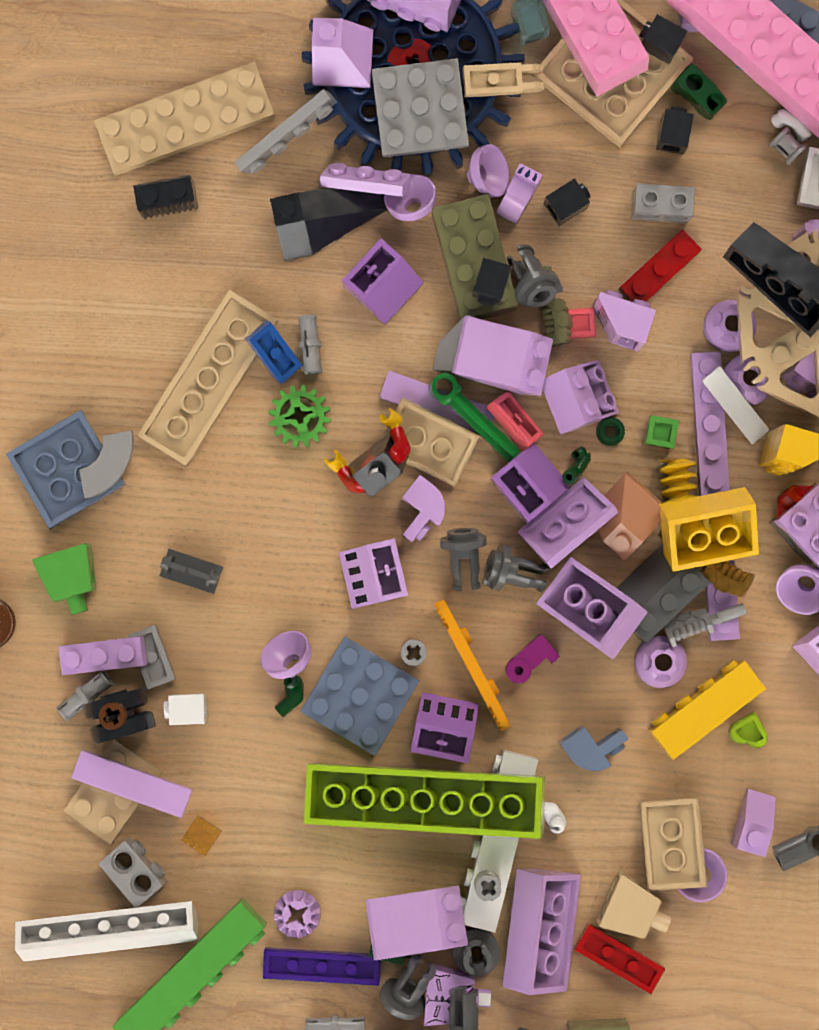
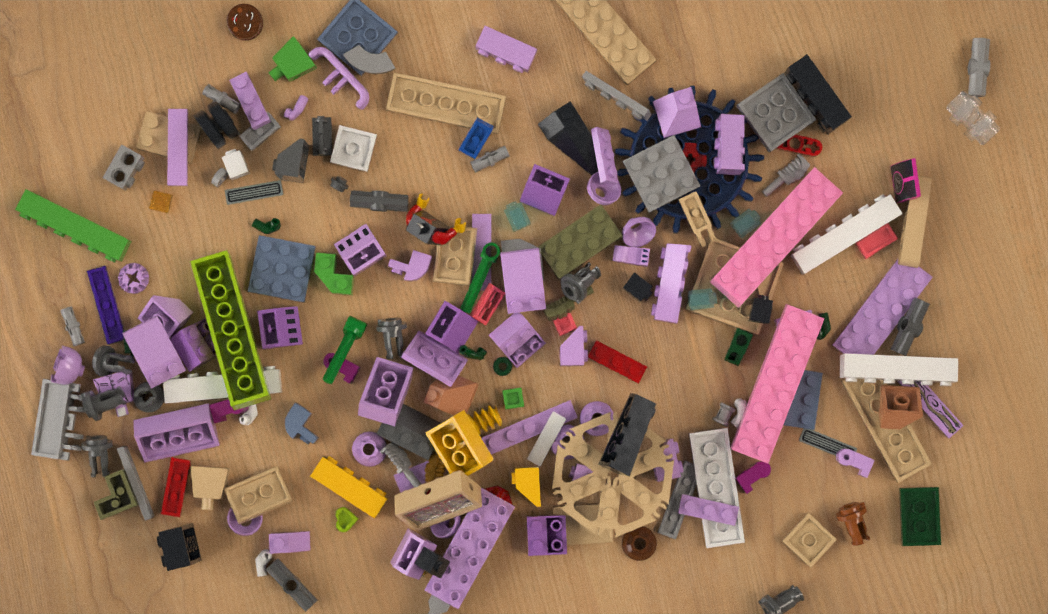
camera: 70 degrees right, 0 degrees up
(103, 713) = (214, 126): reddish brown bush -> none
(104, 510) = (341, 69): none -> lavender piece
(106, 931) = (82, 165): white brick -> none
(140, 591) = (298, 109): none -> lavender arm
(163, 266) = (505, 49): none -> lavender brick
(166, 196) = (550, 36): black brick -> none
(197, 738) = (219, 177): none -> light grey tile
(214, 625) = (292, 162): none -> dark grey slope
(225, 532) = (353, 148): none -> white plate
(235, 697) = (253, 192): none -> sticker
(268, 570) = (339, 183): none -> dark grey plate
(284, 649) = (292, 210): lavender piece -> none
(296, 404) = (434, 173): bright green gear -> none
(313, 522) = (379, 201): none -> dark grey piece
(364, 879) = (170, 311): none -> lavender slope
(386, 633) = (326, 270): none -> bright green brick
(405, 335) = (516, 216): none -> clear light blue brick
(413, 661) = (321, 297): light grey bush -> none
(425, 859) = (194, 345): none -> medium lavender slope
(464, 544) = (397, 298): dark grey piece -> none
(486, 625) = (353, 331): none -> green axle
(486, 687) = (314, 344): light orange piece -> none
(488, 876) = (186, 389): light grey bush -> none
(491, 282) = (564, 256): black brick -> none
(532, 855) = (223, 408): none -> magenta leg
(576, 151) = (671, 282): none -> lavender wedge
(593, 1014) = (135, 482): none -> light grey tile
(618, 116) = (701, 299): none -> clear light blue brick
(662, 203) = (658, 347): light grey brick -> none
(674, 130) = (708, 339): black brick -> none
(716, 986) = (179, 547): none -> black brick
(768, 872) = (261, 562): none -> white arm
(776, 587) = (438, 500): none -> tan brick

